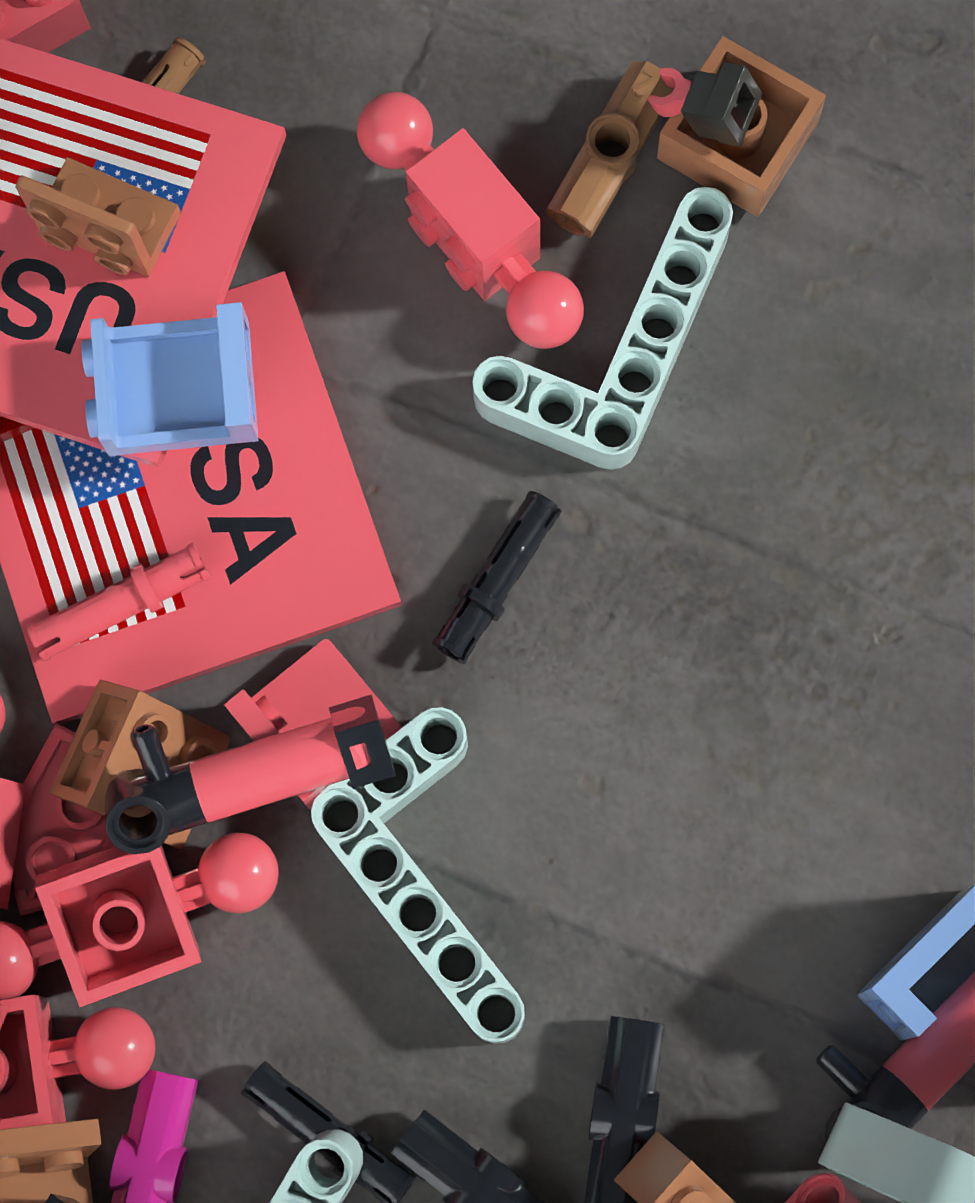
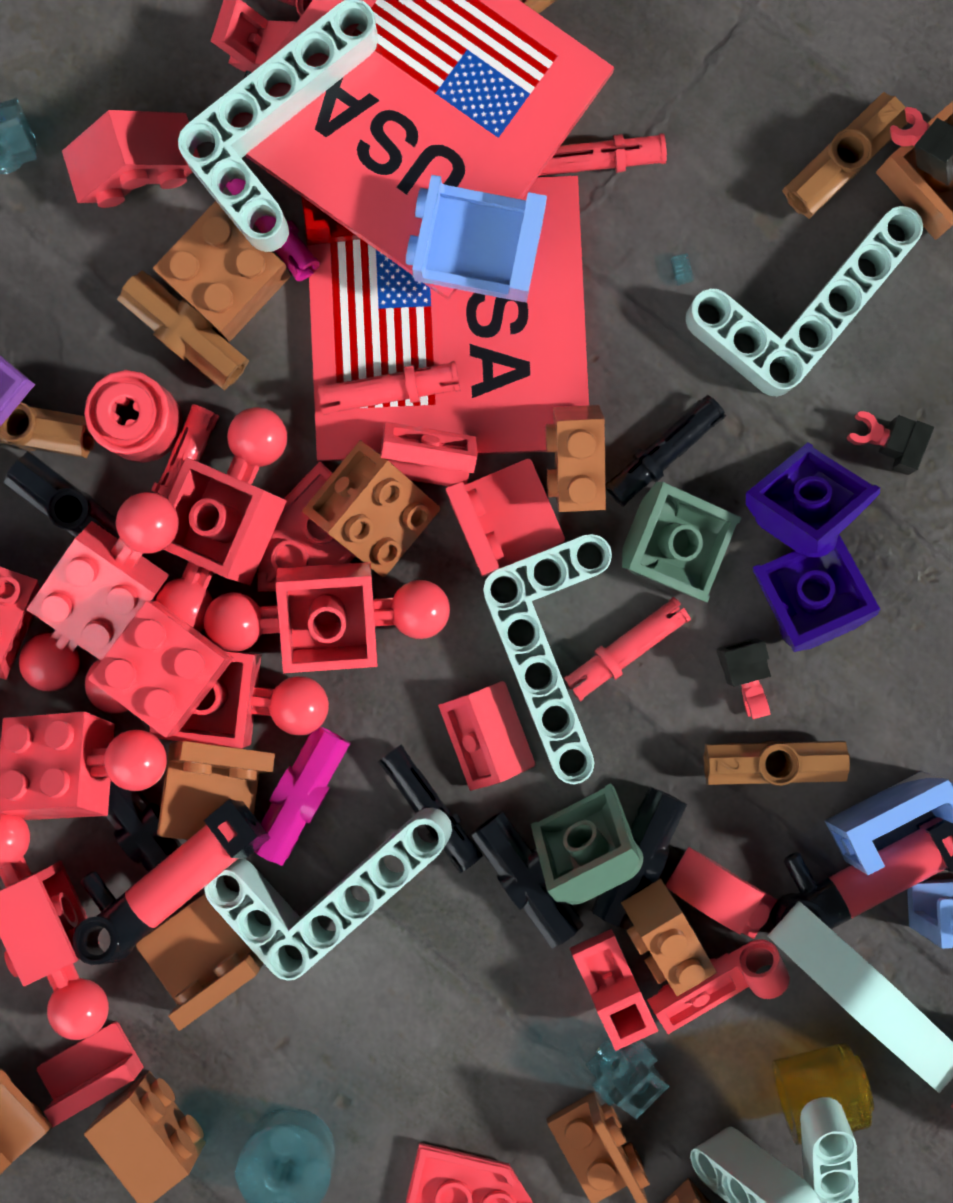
camera: 10 degrees right, 10 degrees up
(102, 216) = (459, 95): nougat bracket -> none
(193, 670) = (429, 453): none -> coral panel
(243, 777) = (446, 547): piece -> none
(311, 236) = (607, 155): none -> coral pin
(375, 1014) = (487, 736): none -> coral panel
(387, 618) = (579, 458): none -> nougat brick
(451, 347) = (682, 269): none -> clear light blue piece
(473, 217) = (729, 176): coral brick -> none
(523, 846) = (612, 659): none -> coral pin
(547, 1121) = (587, 848): none -> sand green slope
(548, 684) = (678, 540): none -> sand green slope
(685, 819) = (744, 666): none -> pearl dark grey piece
(697, 584) = (809, 501): none -> dark purple slope
(746, 699) = (816, 596): none -> dark purple slope
(747, 1129) = (721, 894): none -> coral brick
(794, 477) = (903, 440): none -> pearl dark grey piece
(802, 921) = (804, 762): none -> medium nougat piece

